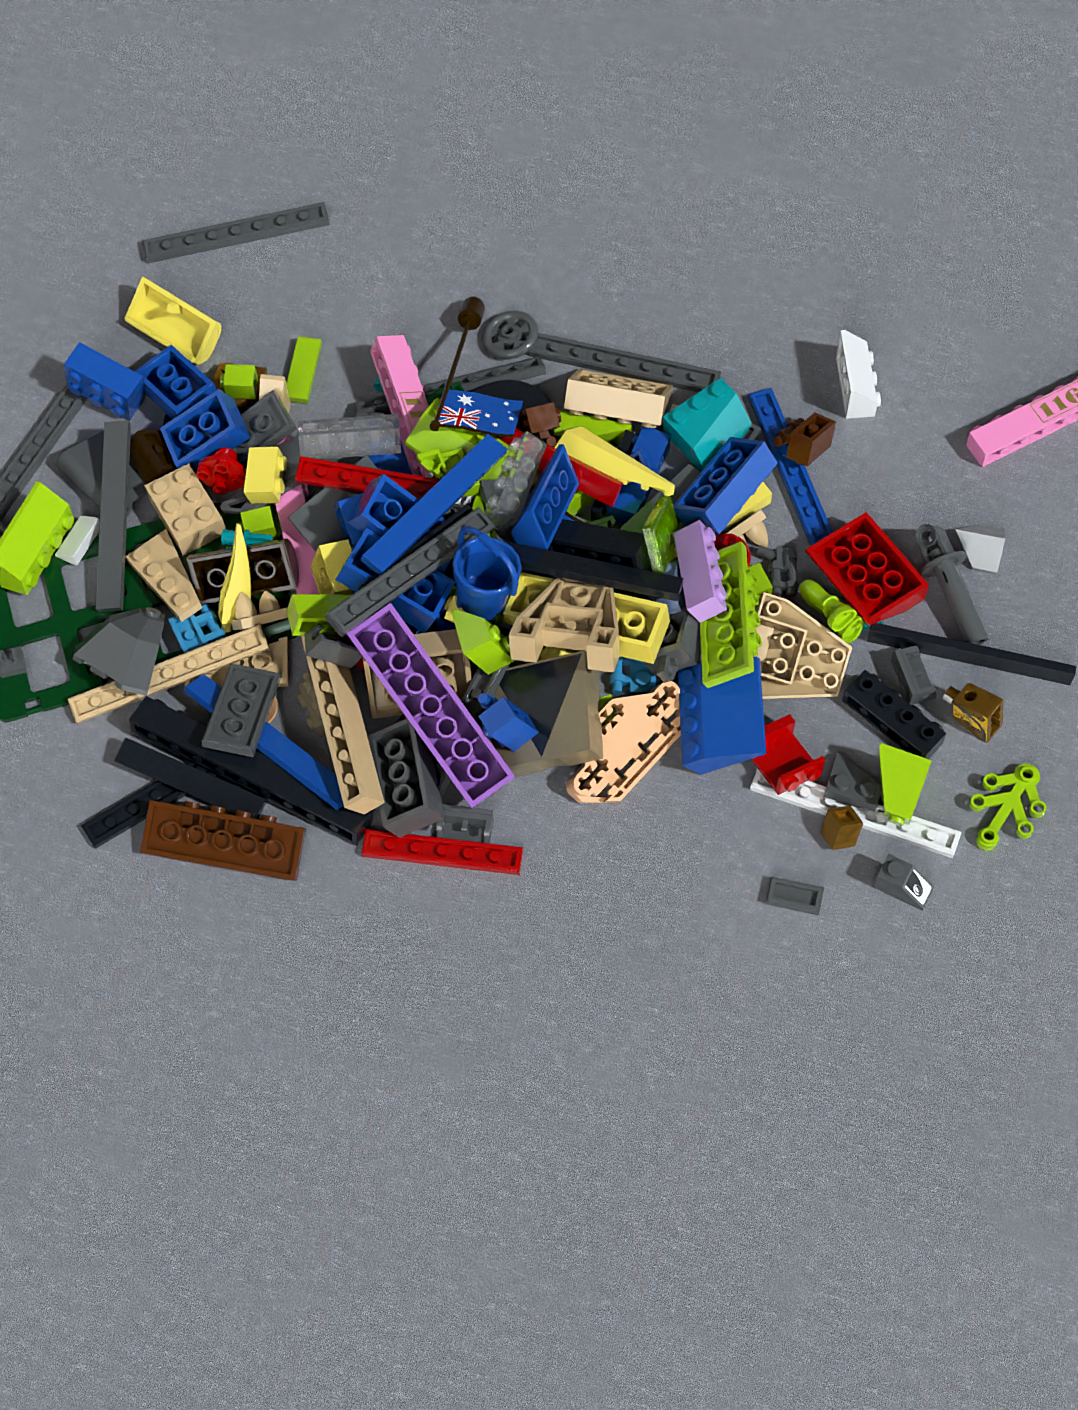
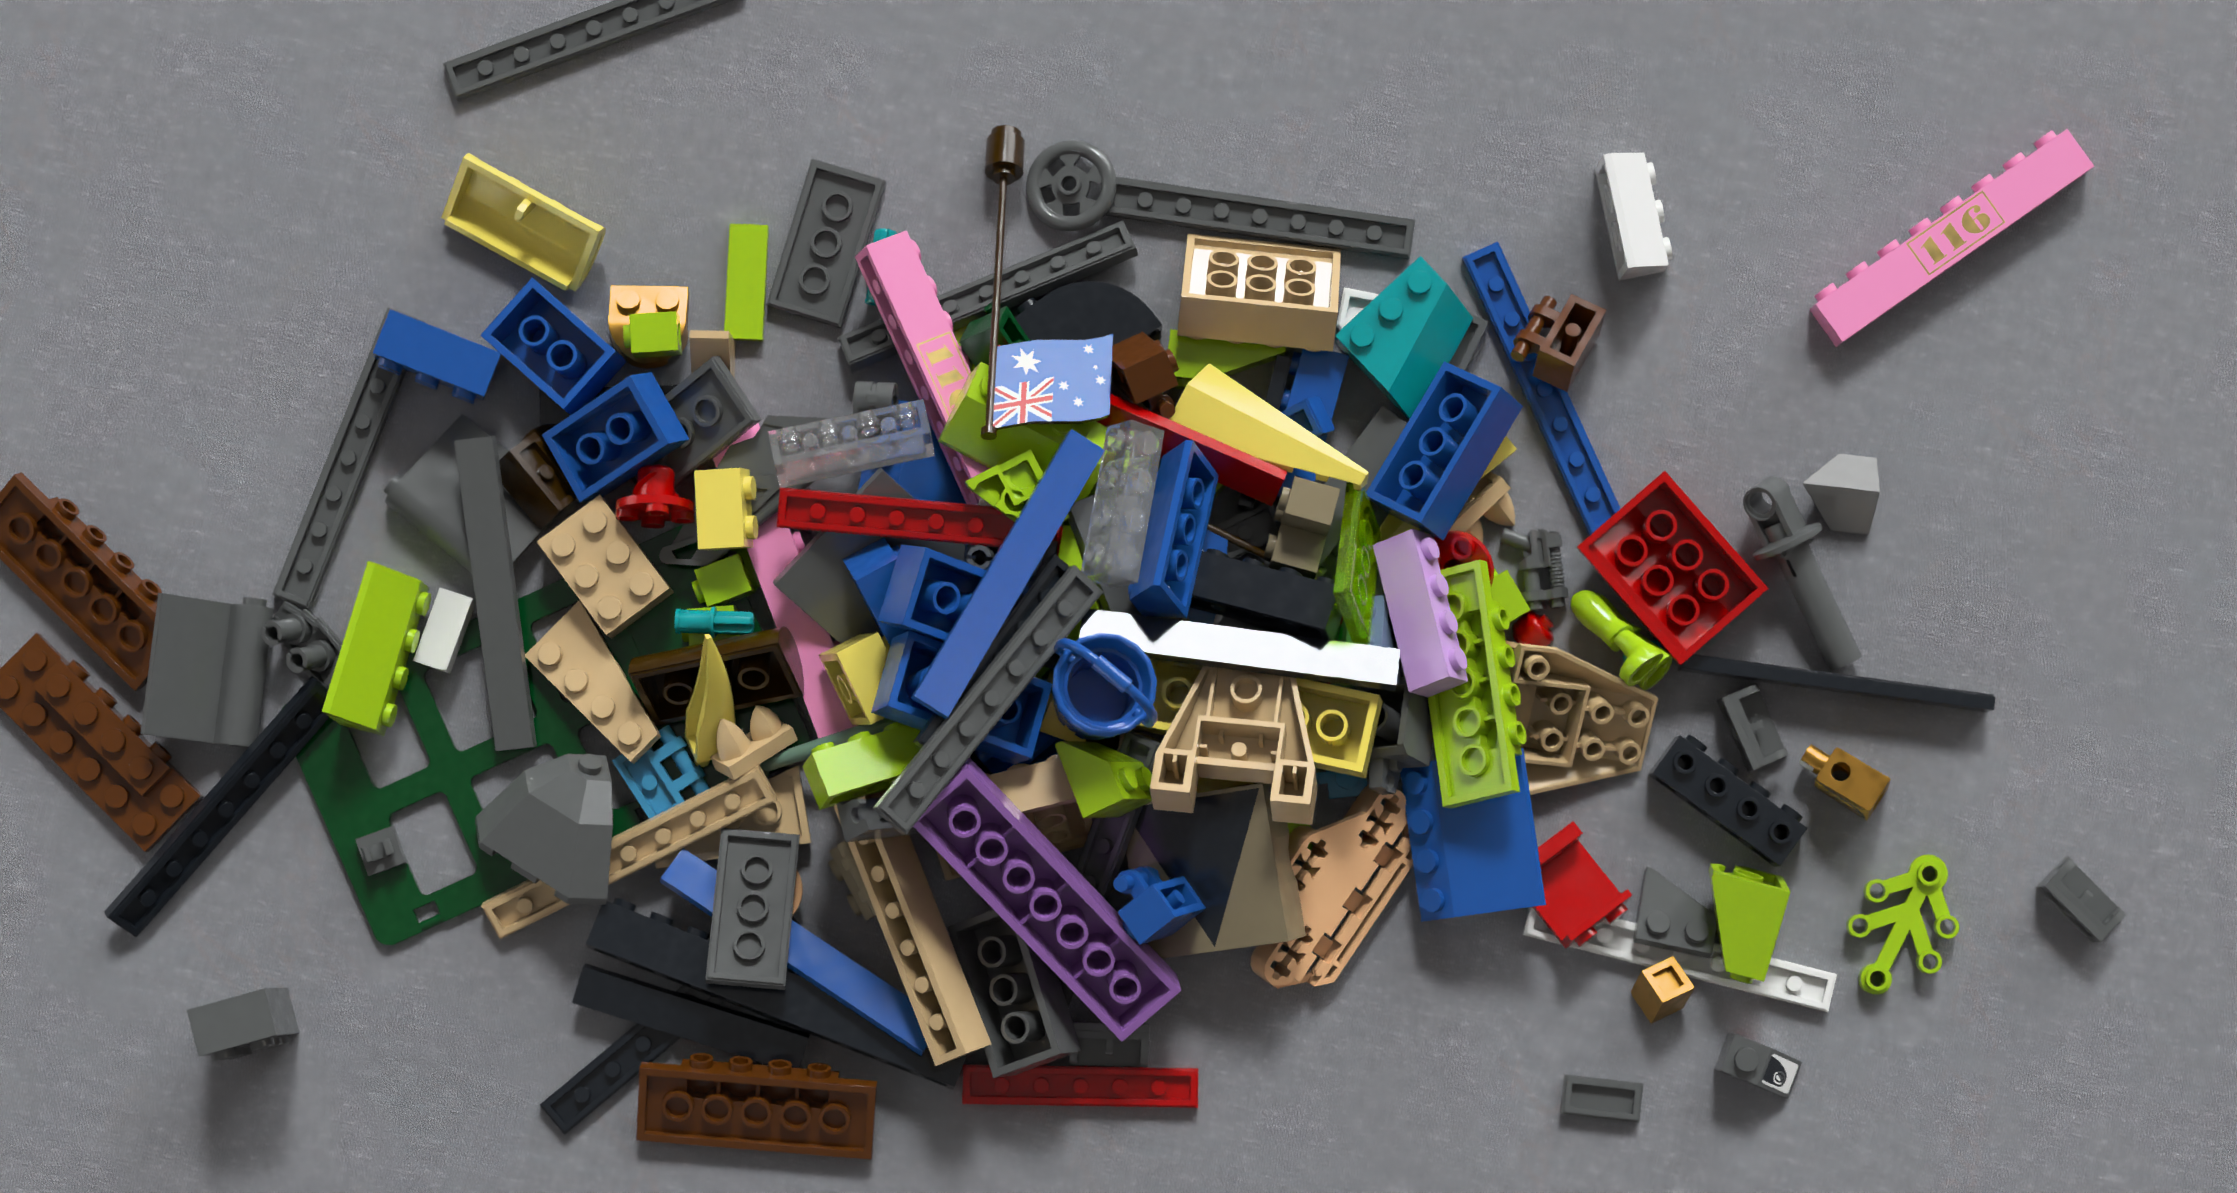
camera: 10 degrees left, 20 degrees up
(350, 360) = (822, 243): none -> dark grey tile
(632, 506) = (1305, 521): none -> dark tan brick

